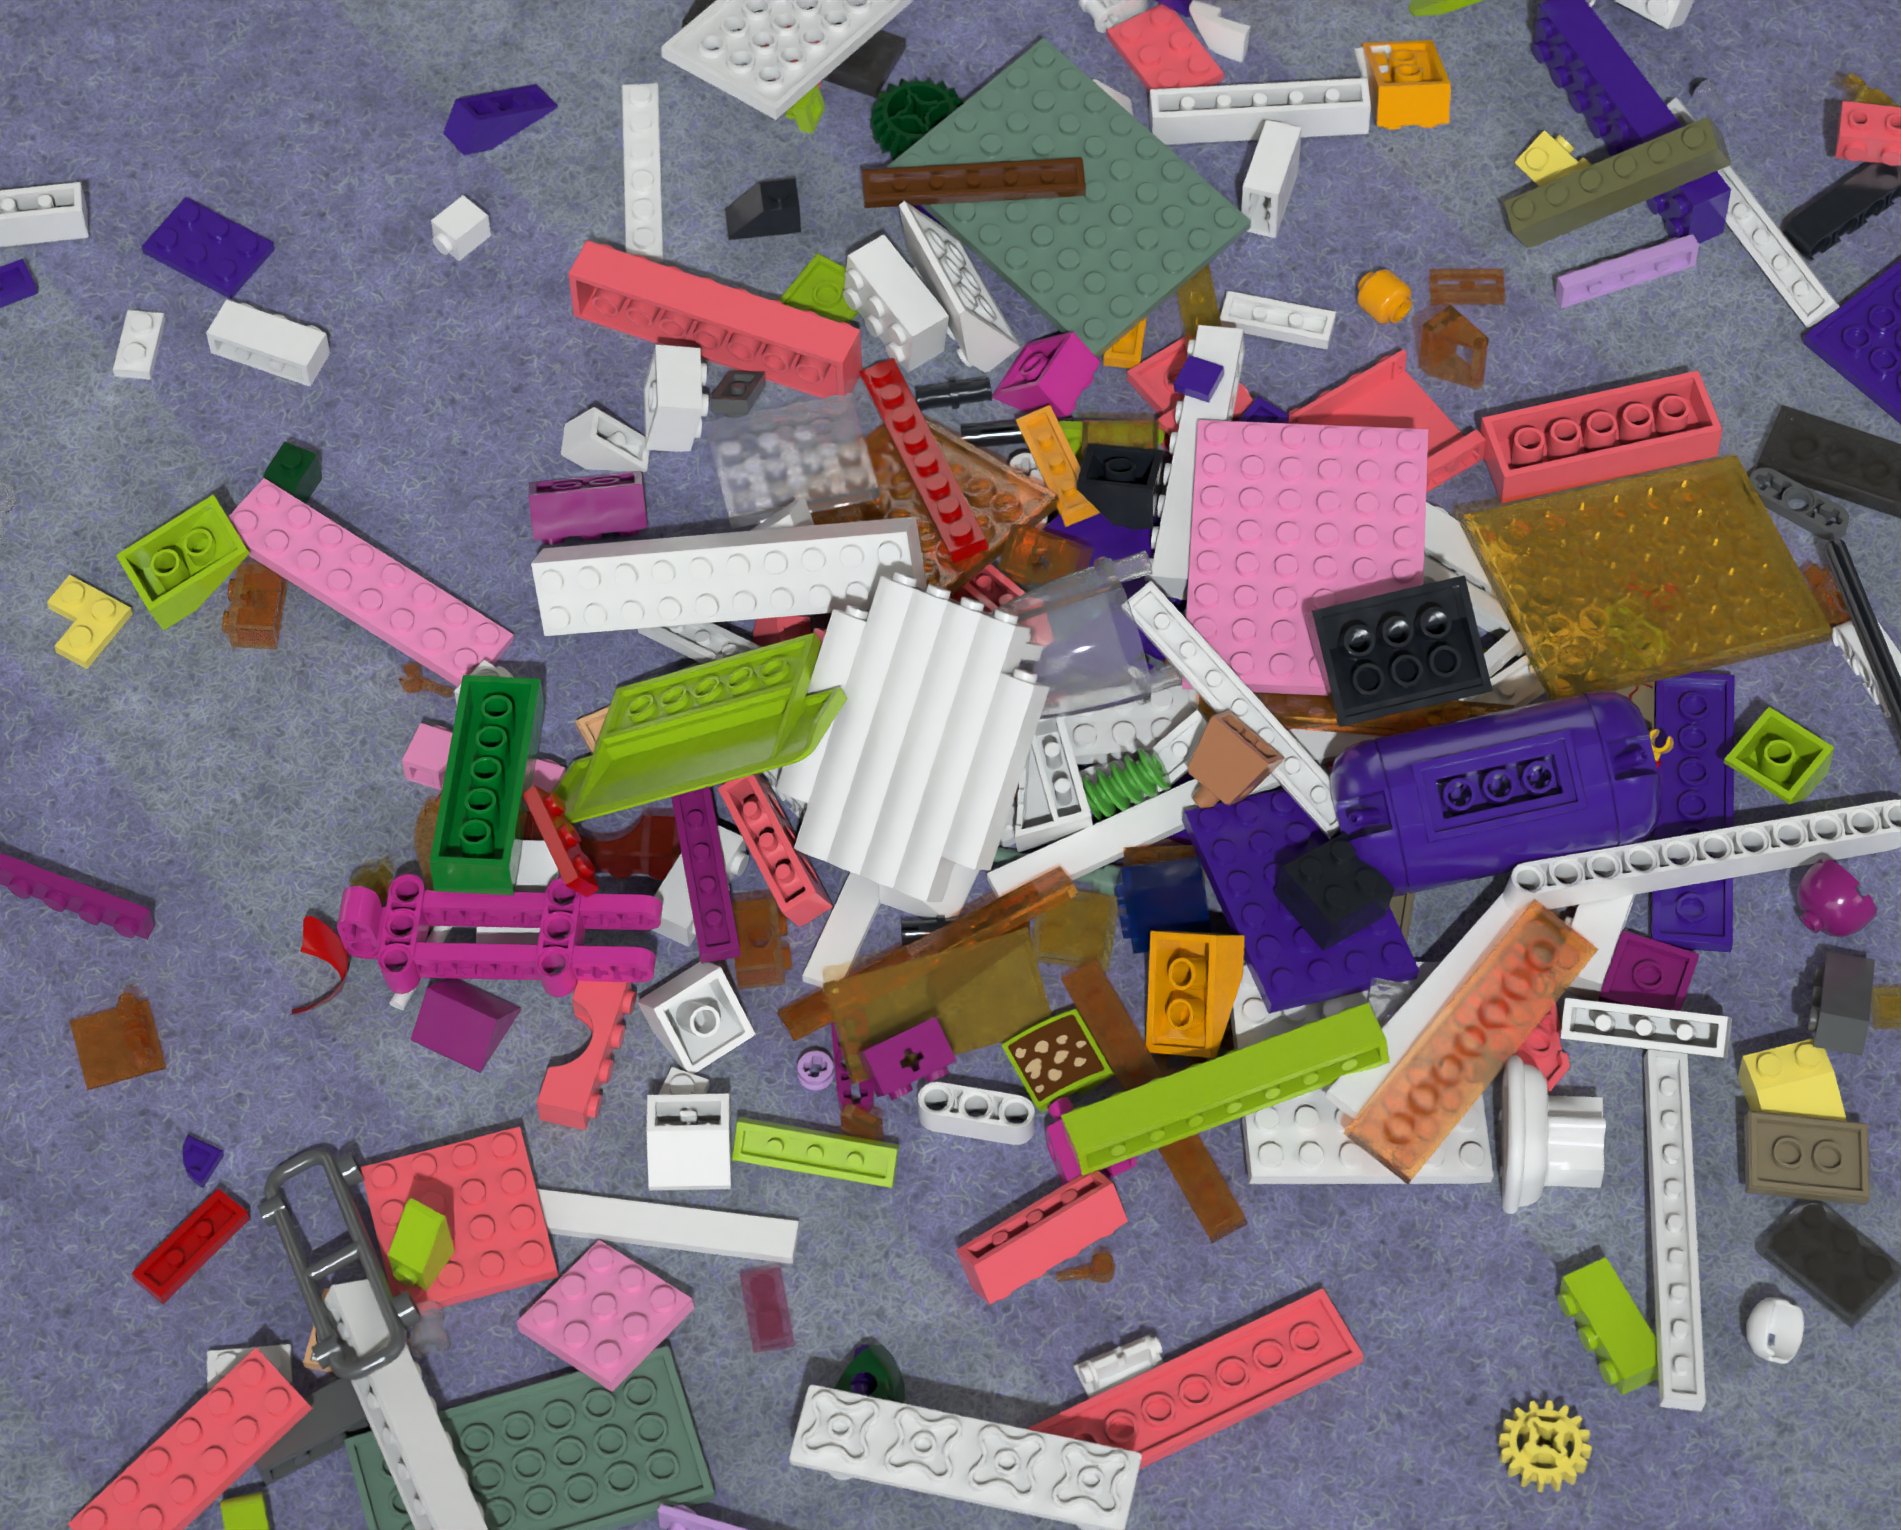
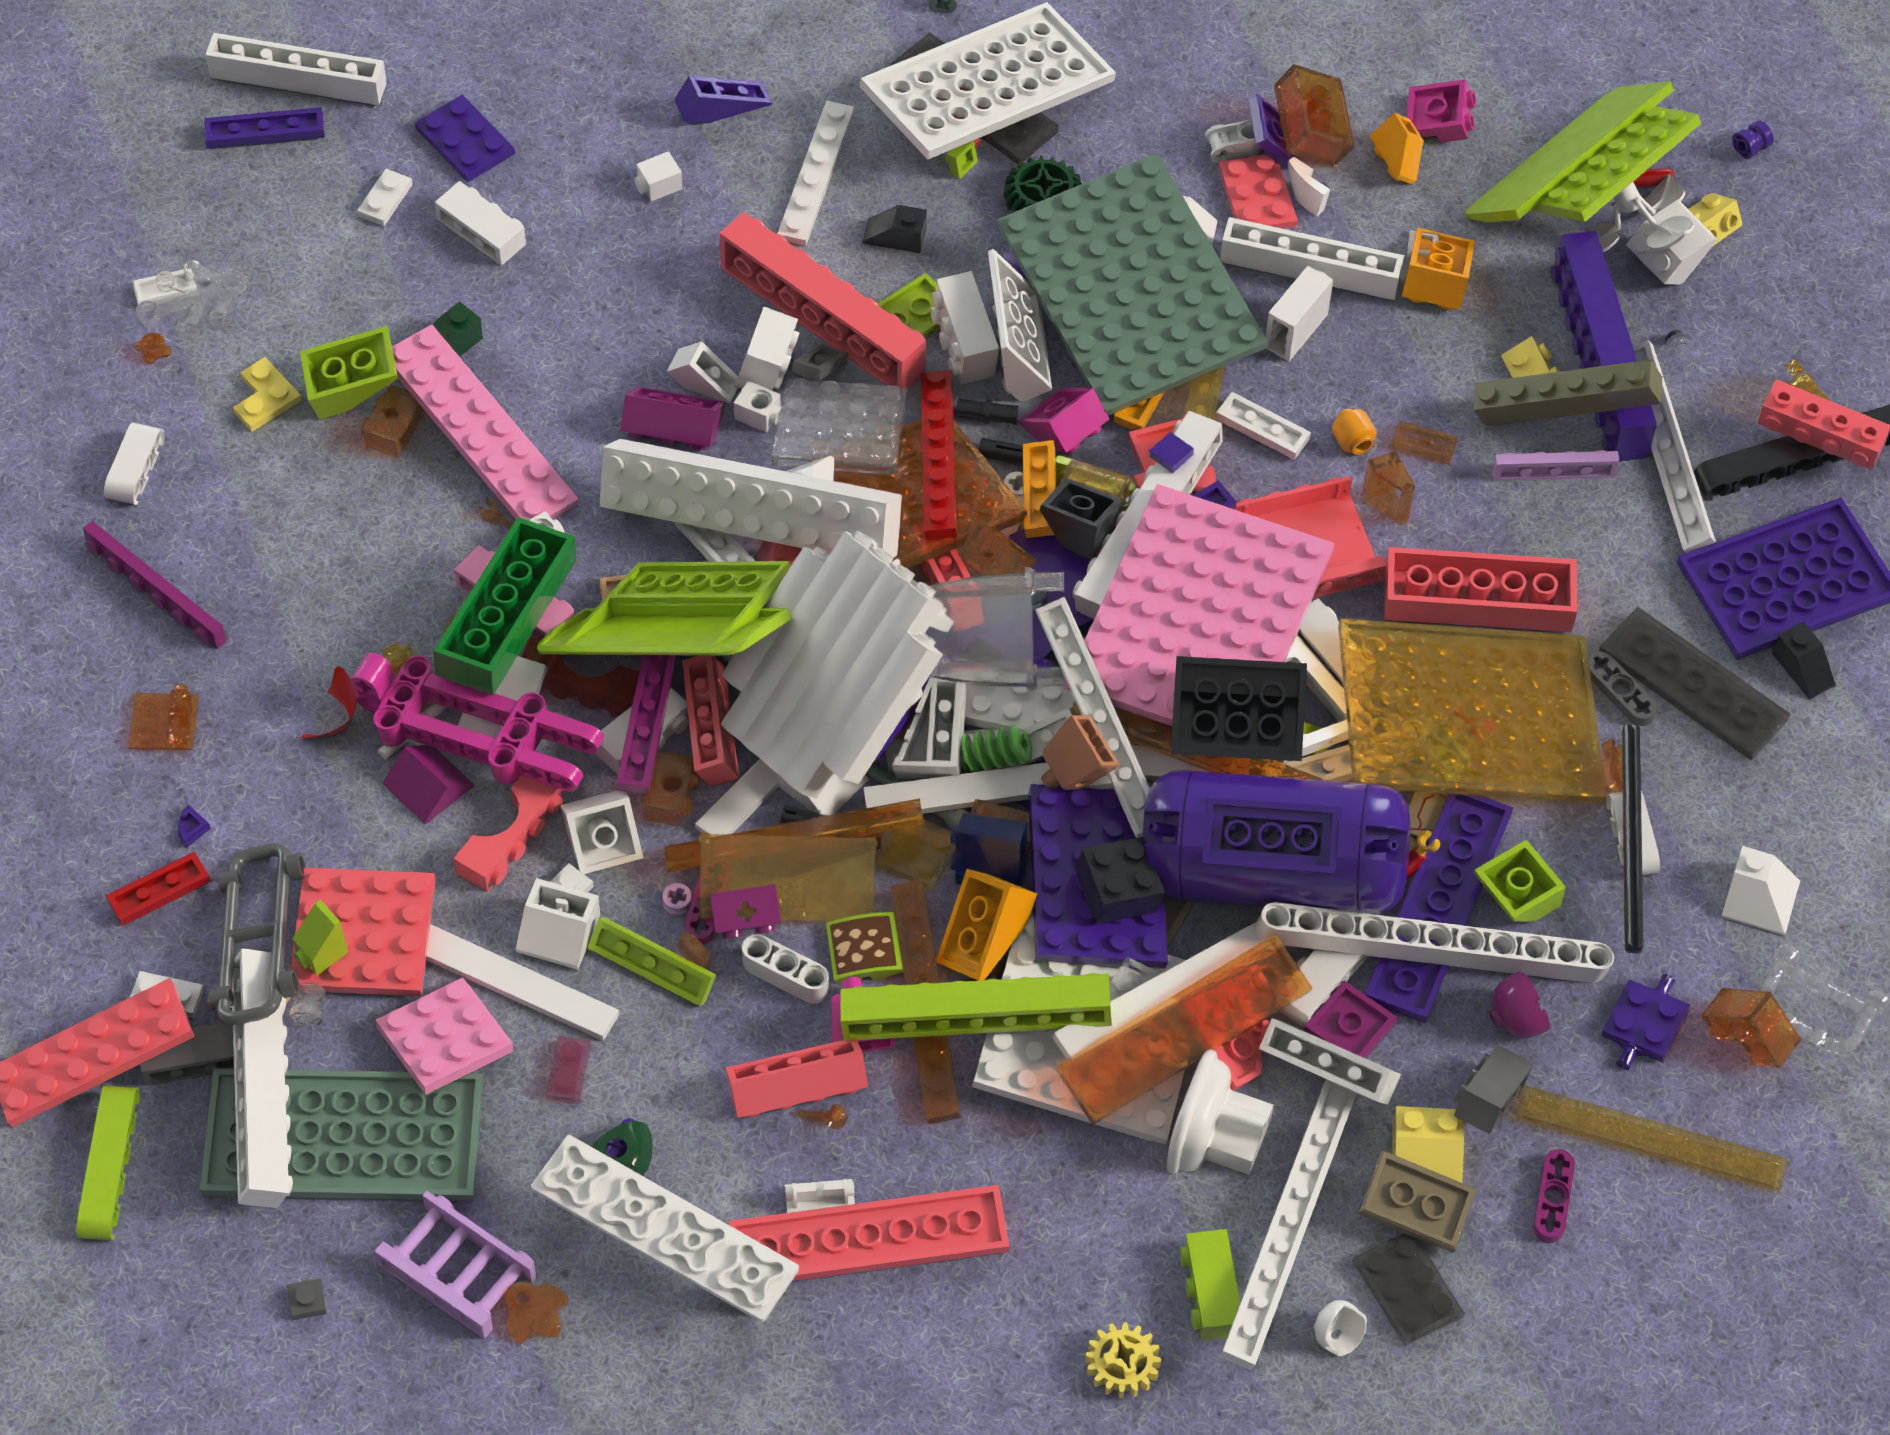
camera: 15 degrees right, 0 degrees up
(561, 840) = (541, 664): red plate -> none
(674, 457) = (754, 397): none -> white brick
(973, 182) = (1058, 250): reddish brown tile -> none

